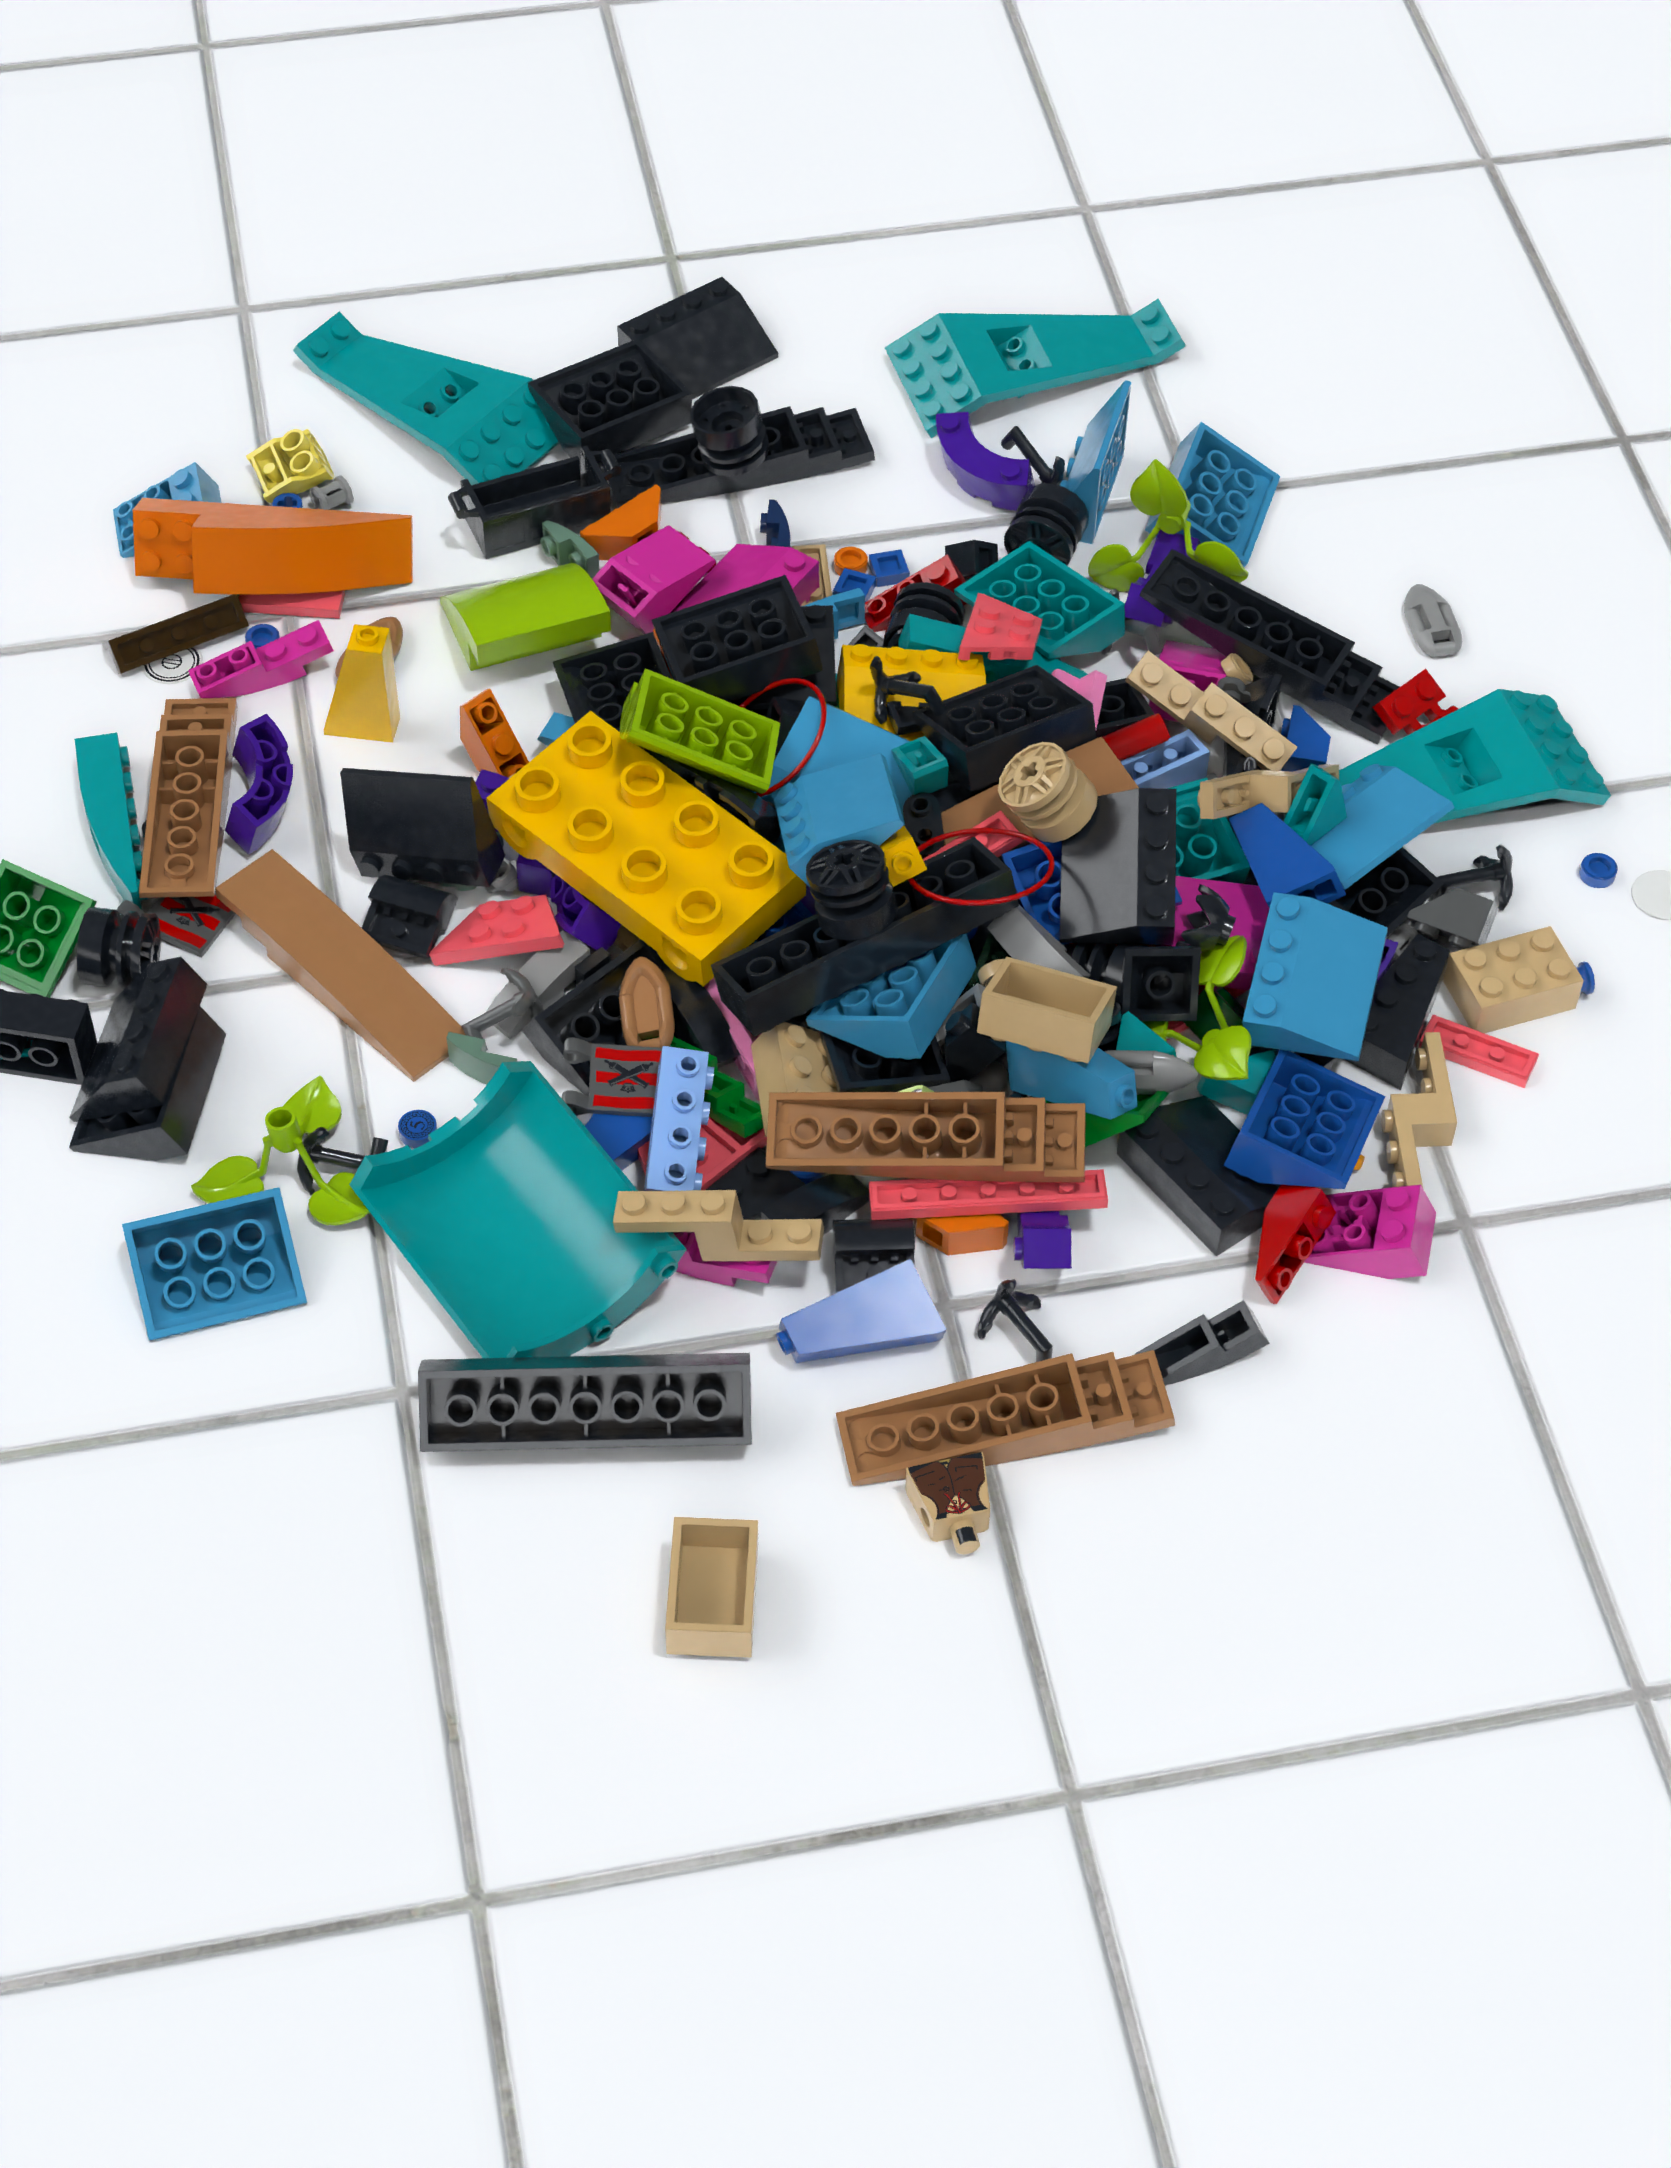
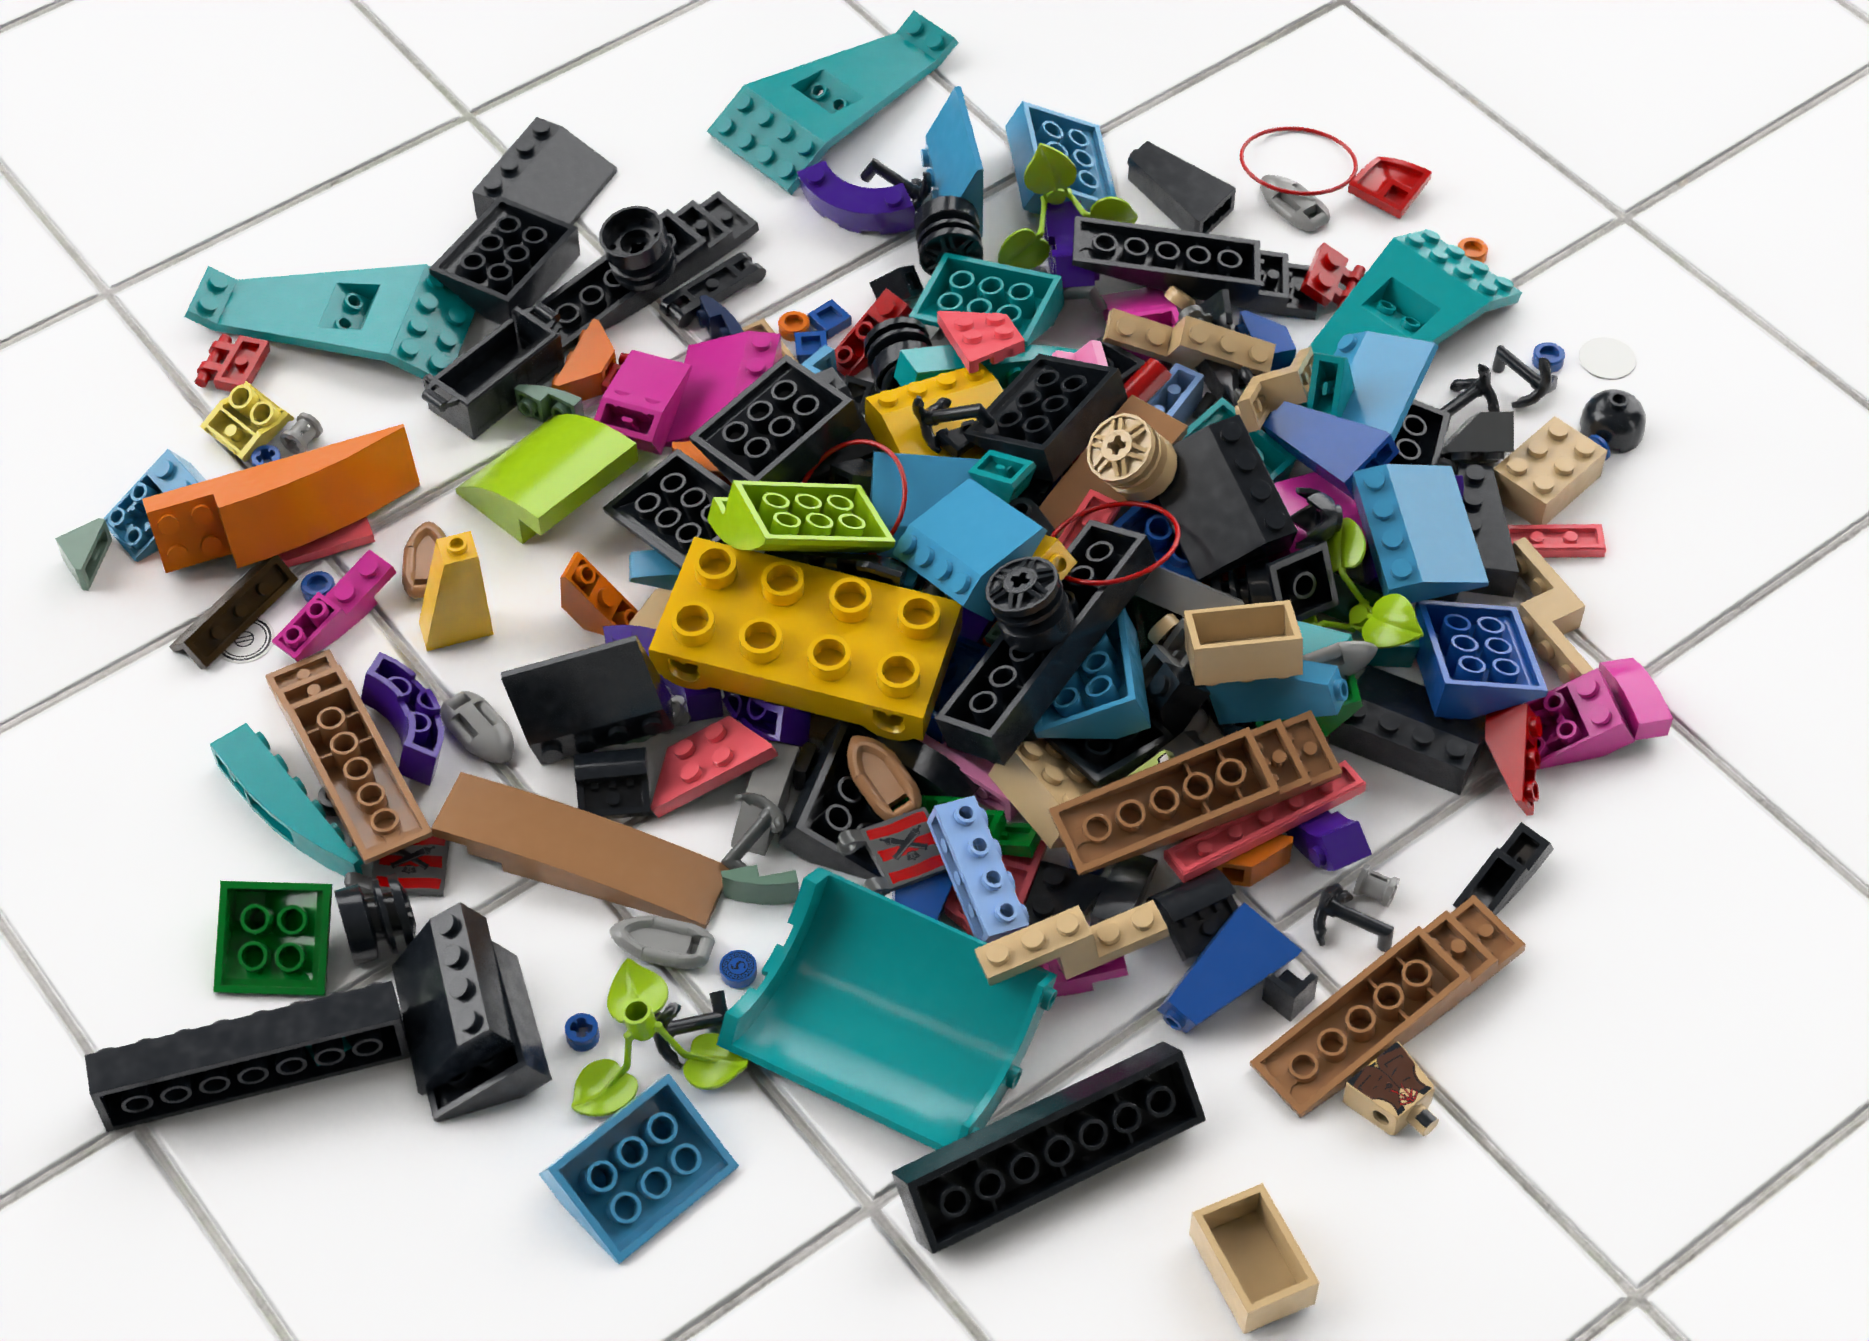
camera: 25 degrees left, 0 degrees up
(80, 529) = (85, 550): none -> slope
(241, 1116) = (592, 1036): none -> blue bush
(312, 408) = (240, 362): none -> plate
(323, 819) = (478, 727): none -> light grey piece
(366, 1076) = (663, 941): none -> light grey piece
(795, 497) = (716, 283): none -> black plate
(915, 1367) = (1289, 993): none -> black panel
(1067, 1303) = (1376, 885): none -> light grey bush
(1319, 568) = (1179, 189): none -> black slope
(1454, 618) = (1292, 192): none -> piece
(1456, 1235) = (1637, 698): none -> slope
(1542, 638) = (1390, 184): none -> red plate
(1562, 879) = (1540, 383): none -> black piece
(1590, 735) = (1474, 248): none -> orange tile
(1622, 957) = (1614, 417): none -> black cylinder

